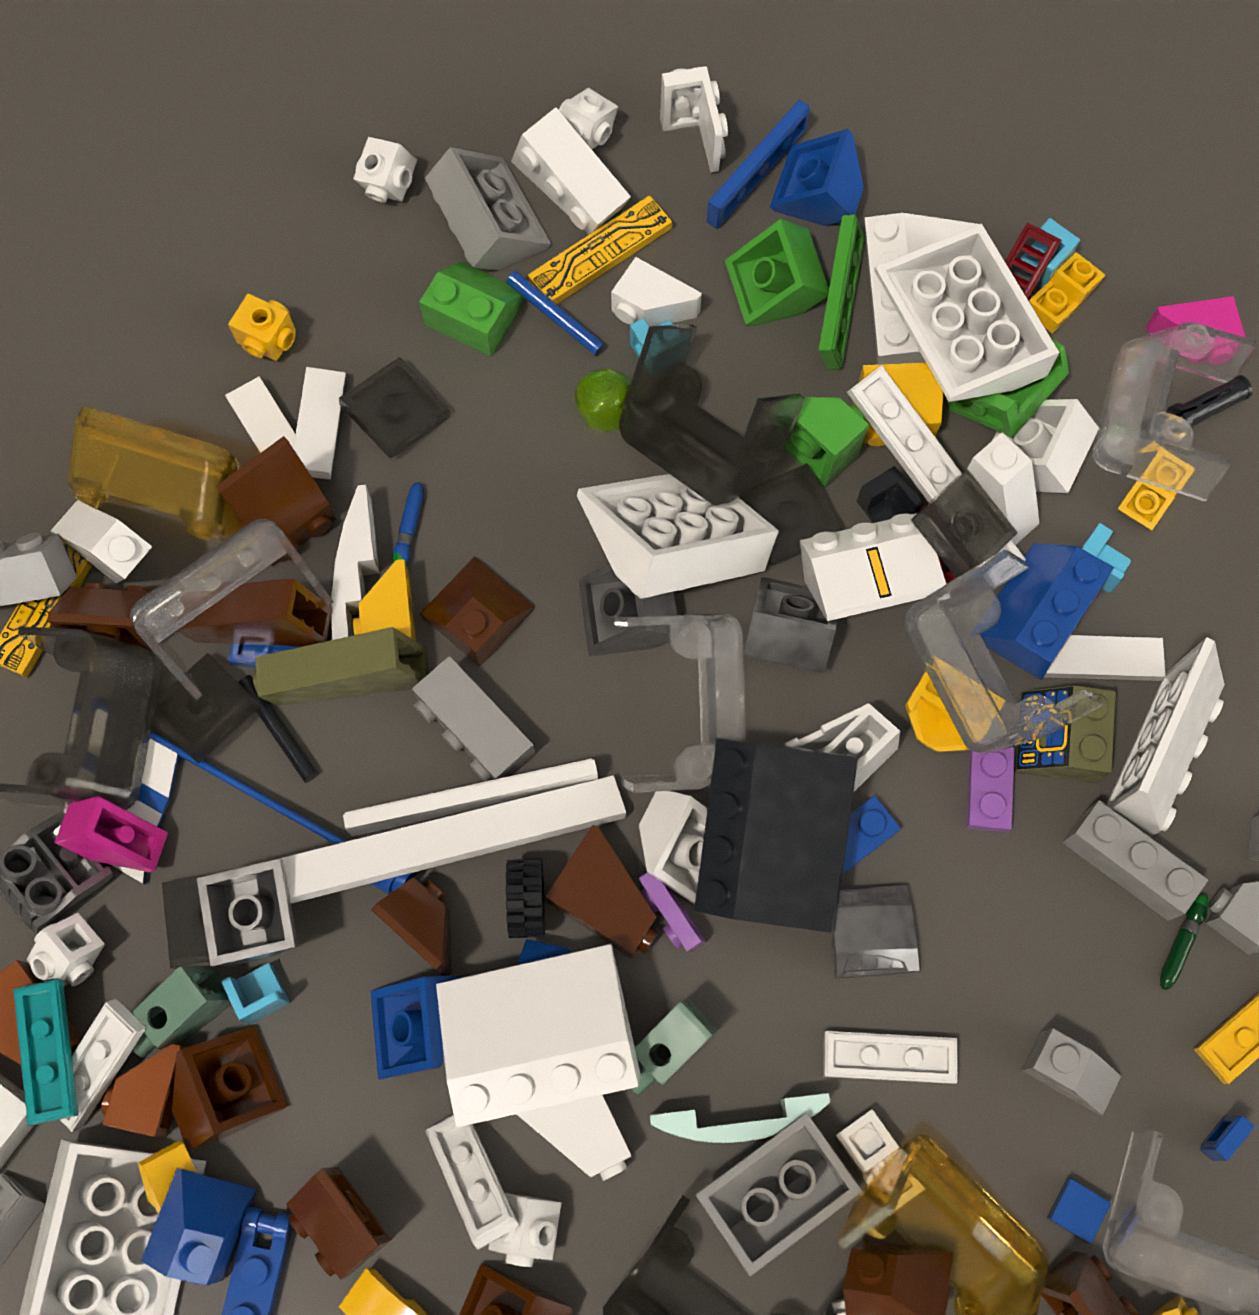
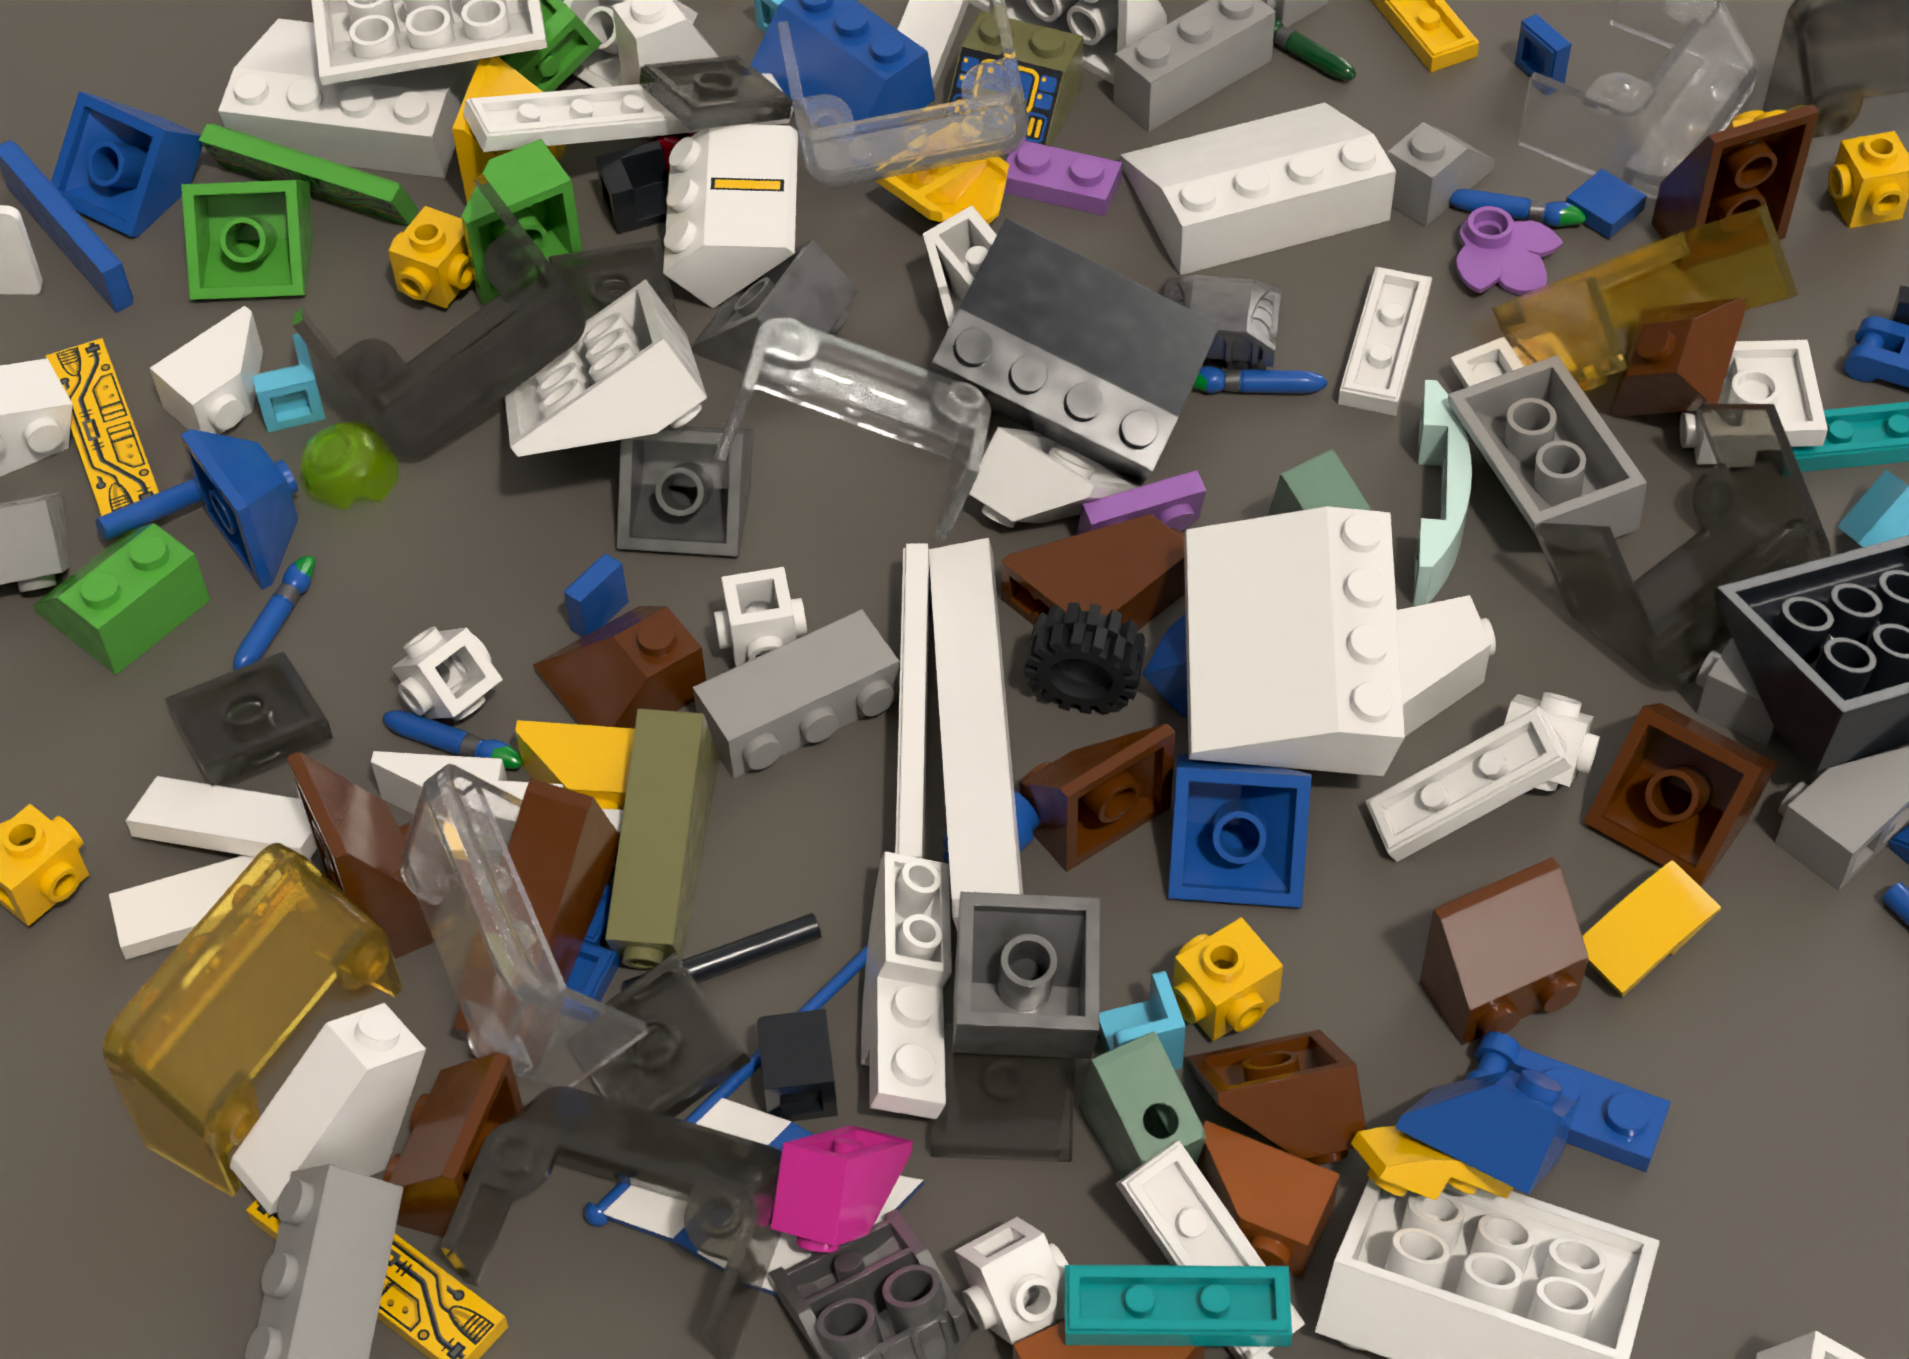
camera: 75 degrees left, 20 degrees down
(198, 792) = (797, 1065): none -> black panel
(254, 842) = (905, 985): none -> white slope
(307, 1046) = (1226, 979): none -> yellow brick
(439, 507) = (463, 679): none -> white brick
(508, 399) = (276, 611): none -> blue piece
(514, 670) = (758, 614): none -> white brick
(525, 577) = (596, 595): none -> blue tile
(545, 348) = (245, 498): none -> blue slope
(781, 380) = (431, 258): none -> yellow brick
(825, 973) = (1258, 381): none -> blue piece
(993, 1139) = (1504, 251): none -> medium lavender plate
(1024, 934) = (1262, 186): none -> white slope
(1054, 1139) = (1553, 214): none -> blue piece

